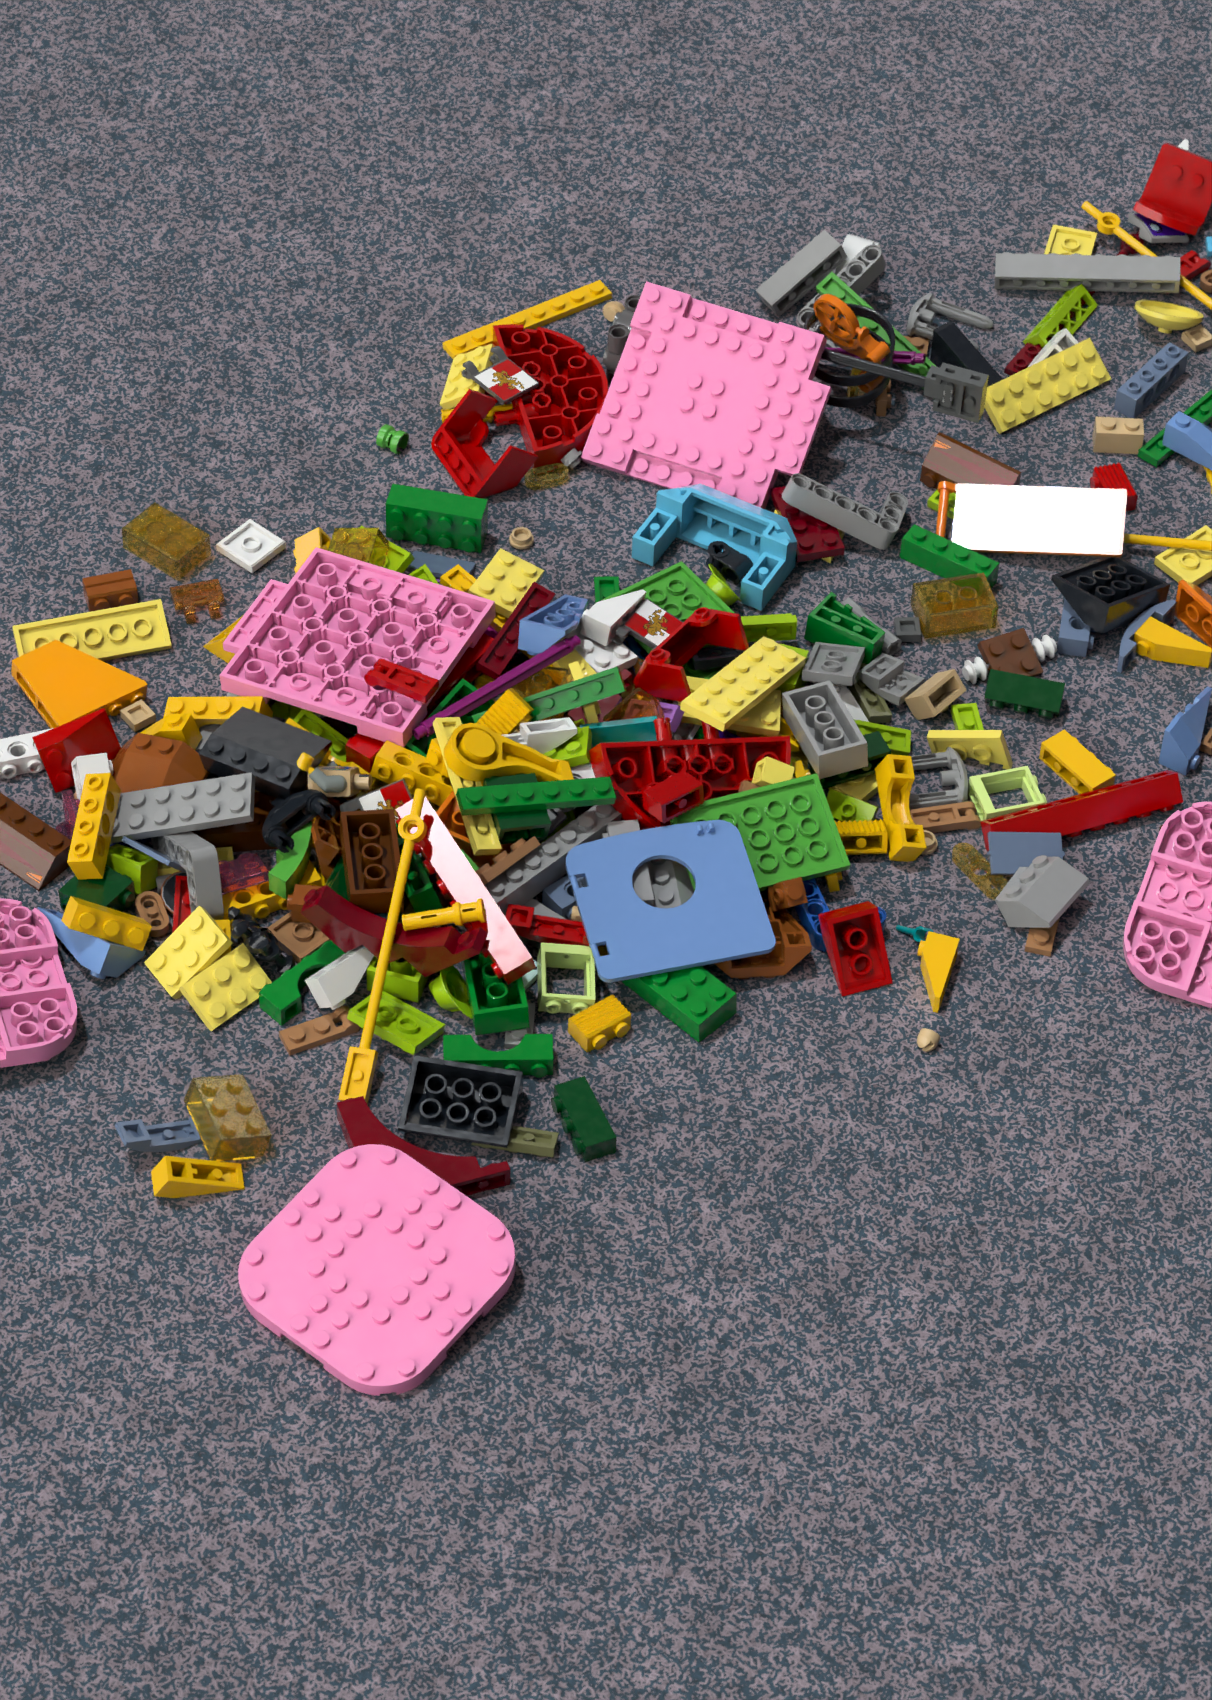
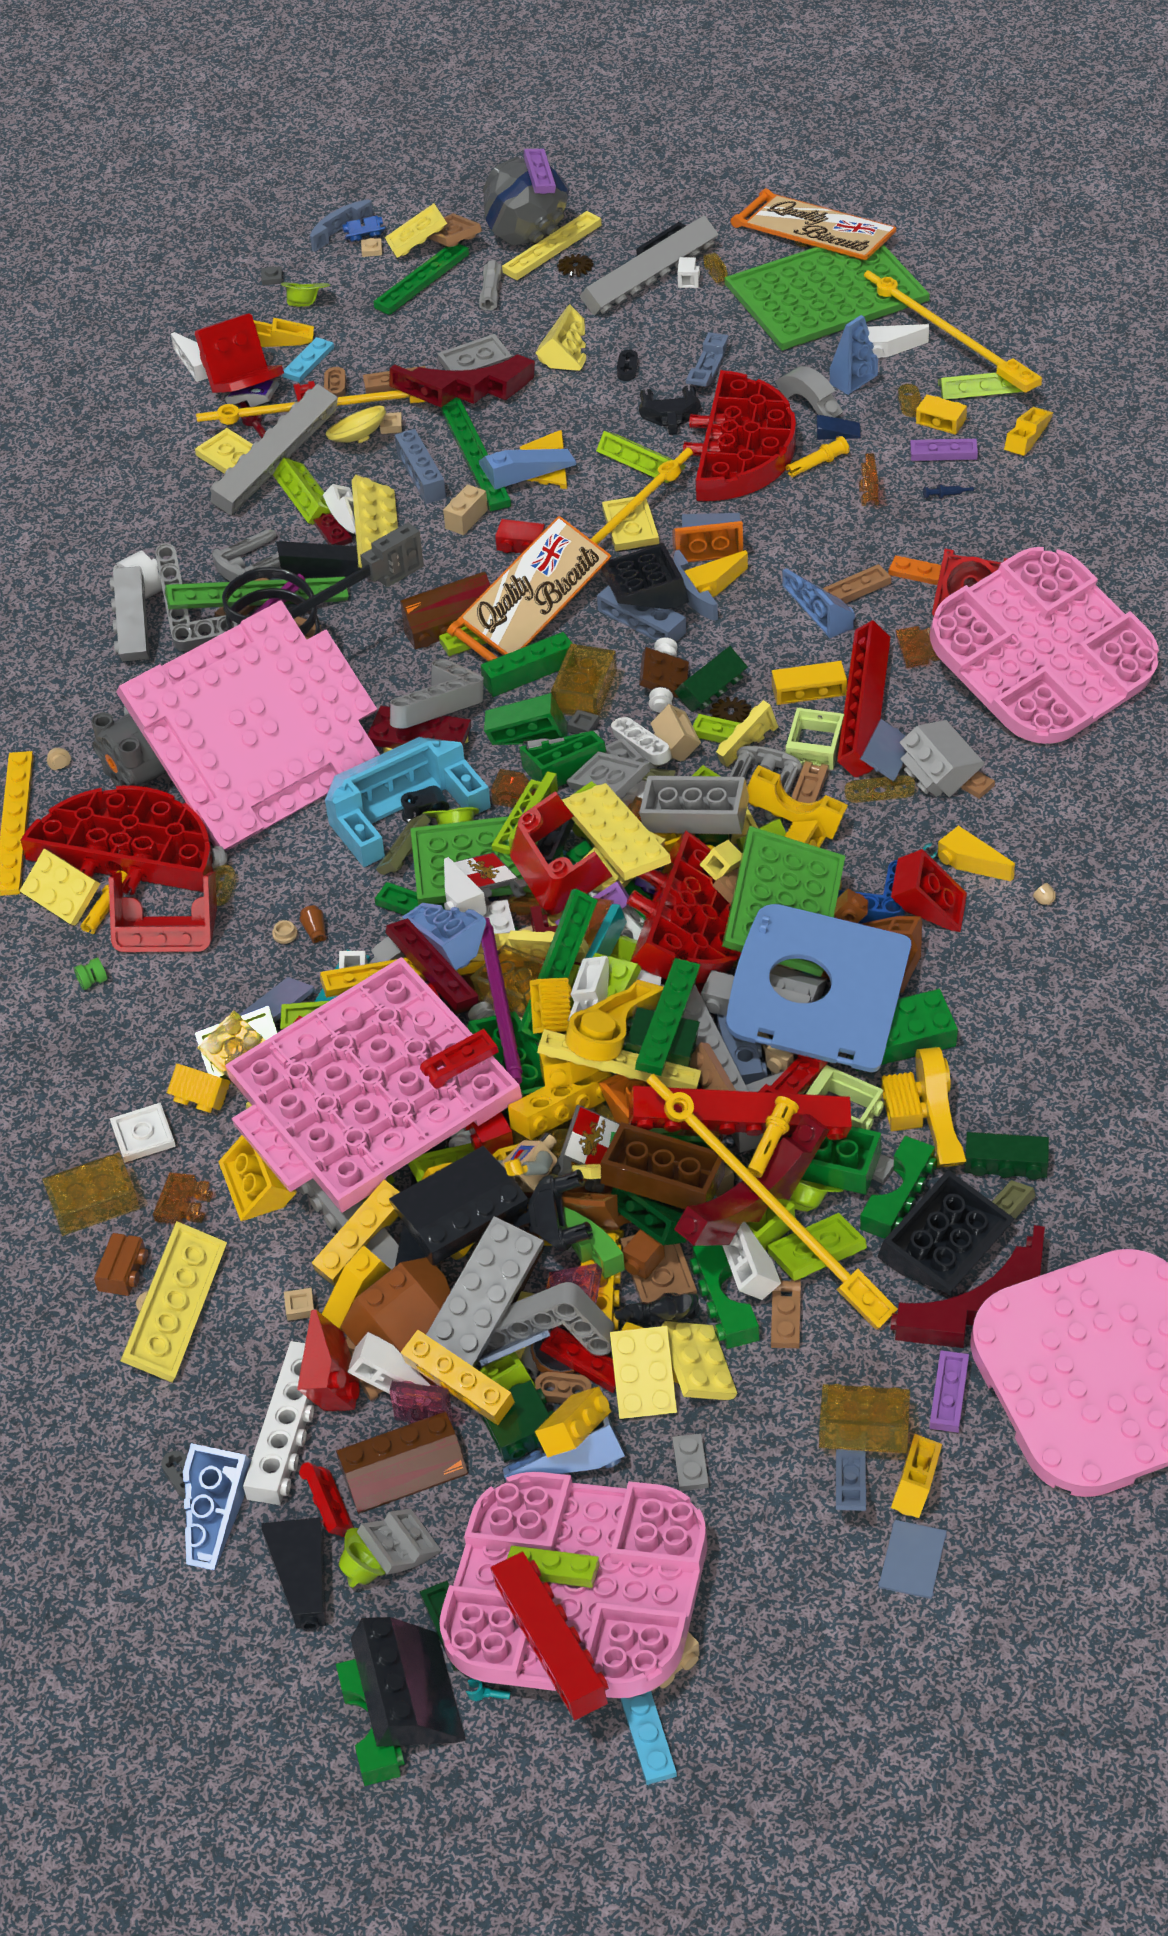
camera: 55 degrees left, 0 degrees up
(73, 684) = (232, 1340): light orange slope -> none
(115, 1210) = (912, 1559): none -> sand blue piece
(128, 1026) = (690, 1462): none -> light grey plate
(292, 1171) = (949, 1391): none -> medium lavender plate
(436, 518) = (226, 976): green brick -> none
(503, 379) = (94, 858): flag -> none
(506, 581) = (364, 947): light yellow plate -> none
(542, 551) = (313, 922): none -> dark orange cone
(621, 1035) = (934, 1076): none -> yellow animal
(646, 571) = (402, 847): none -> olive plate
(673, 796) = (720, 927): red brick -> none
(786, 604) = (508, 788): none -> clear orange slope
(864, 346) = (290, 593): orange piece -> none
(874, 587) = (525, 721): none -> green wedge
(907, 674) = (642, 740): none -> white beam
(1014, 726) = (741, 710): none -> dark brown gear

